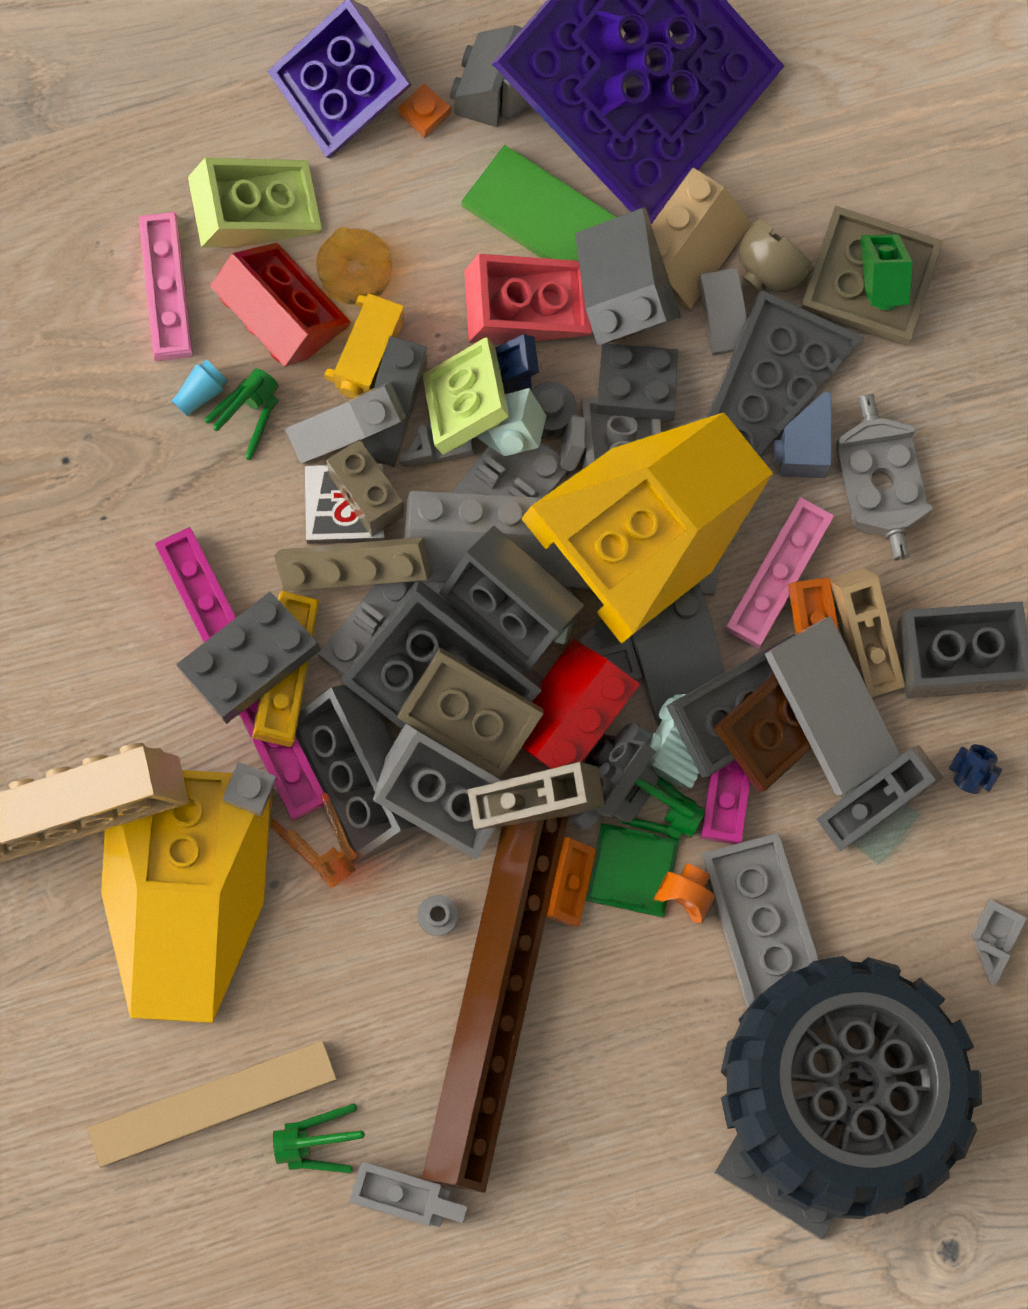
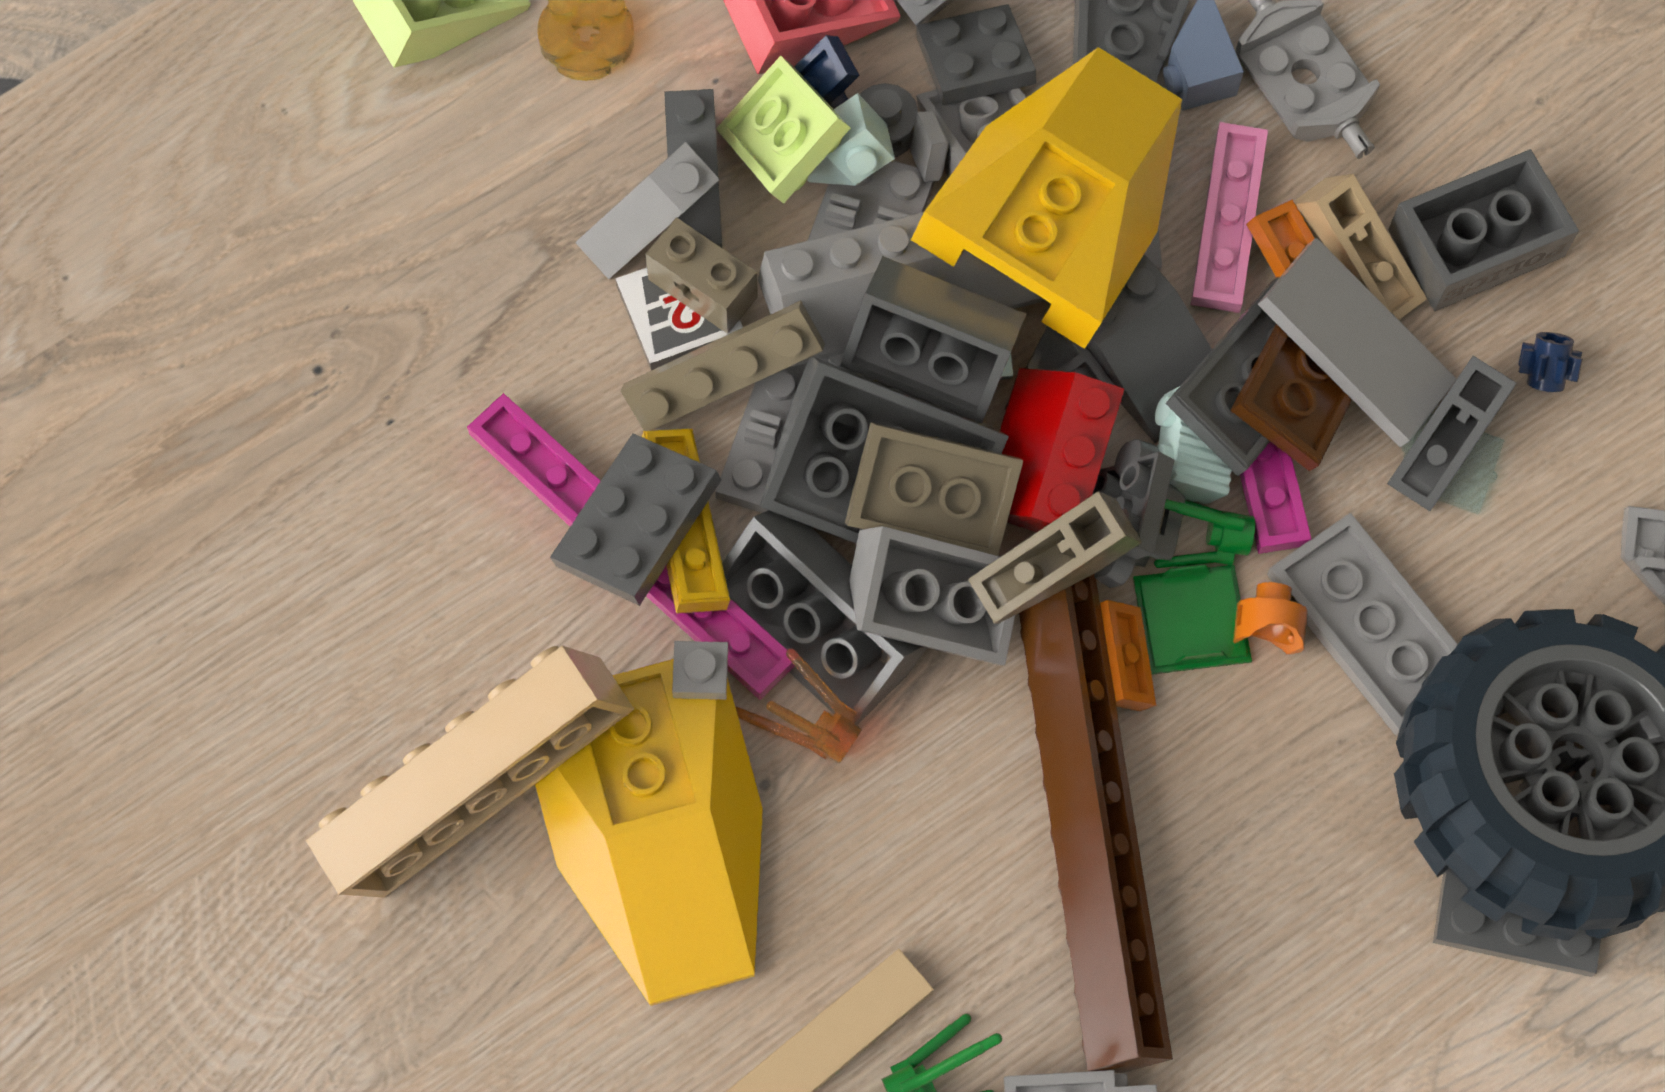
camera: 15 degrees left, 5 degrees down
(165, 286) = (366, 128): bright pink tile -> none
(200, 387) = (453, 228): medium azure cone -> none
(255, 392) = (520, 214): green plant -> none
(278, 303) = (511, 102): red slope -> none
(366, 345) = (638, 115): yellow brick -> none
(424, 452) = (760, 209): light grey slope -> none
(437, 928) = (977, 765): light grey plate -> none

